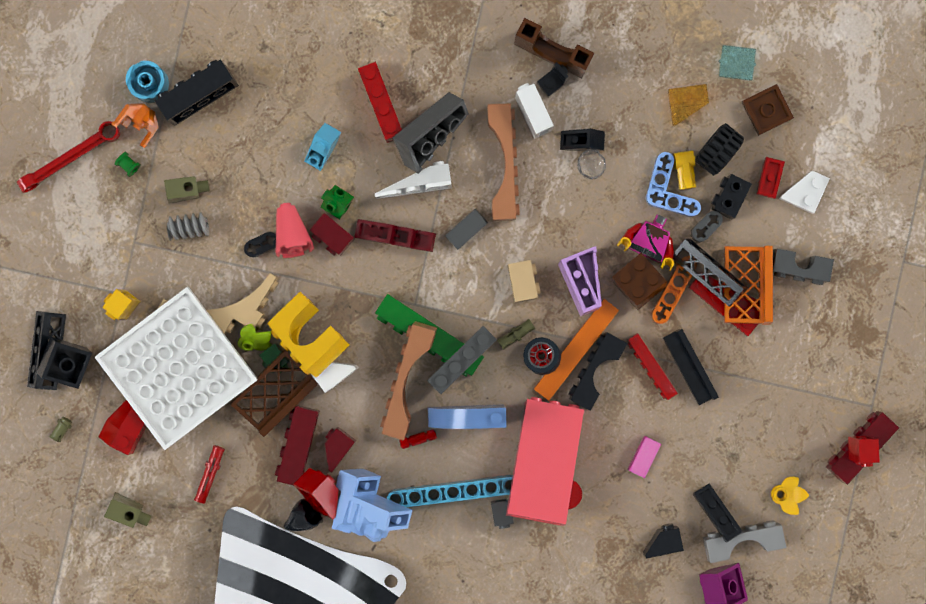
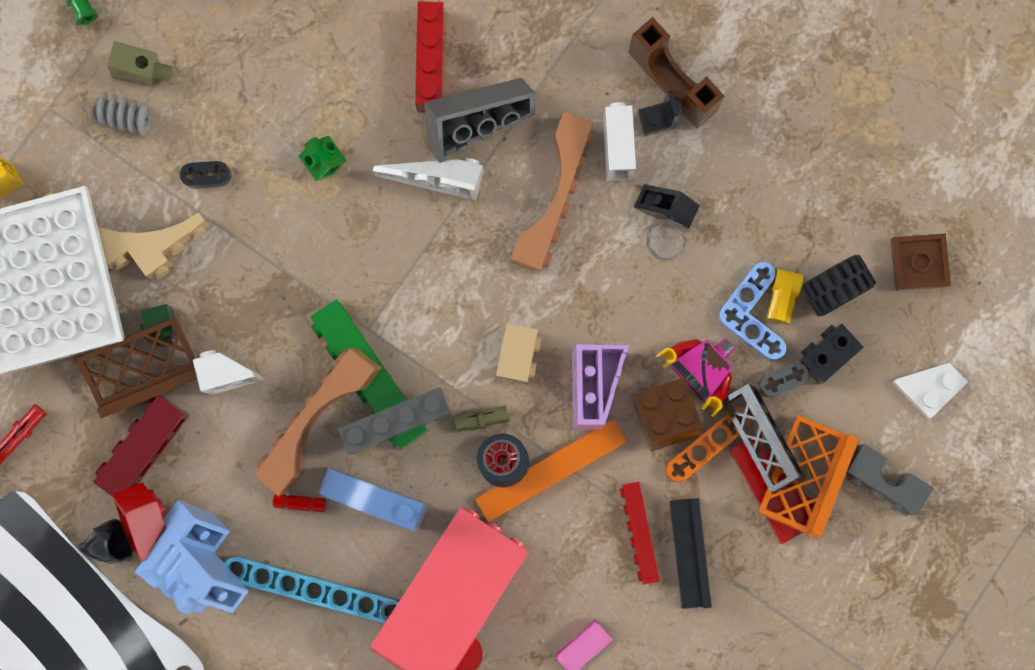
camera: 25 degrees right, 5 degrees down
(253, 340) = (141, 289): lime plate -> none
(287, 326) = (191, 290): yellow arch -> none
(291, 233) = (247, 174): coral cone -> none
(322, 146) = (334, 82): medium azure slope -> none
(331, 234) = (299, 197): dark red brick -> none
(337, 447) = (190, 471): dark red slope -> none
(395, 235) = (378, 230): dark red slope -> none
(466, 229) = (473, 259): dark grey slope -> none
(499, 511) = (362, 641): dark grey brick -> none
(608, 349) = (593, 486): black arch -> none
(686, 101) = (820, 210): clear yellow wing -> none
(737, 62) = (904, 188): clear light blue piece -> none
(770, 177) = (890, 350): red plate -> none

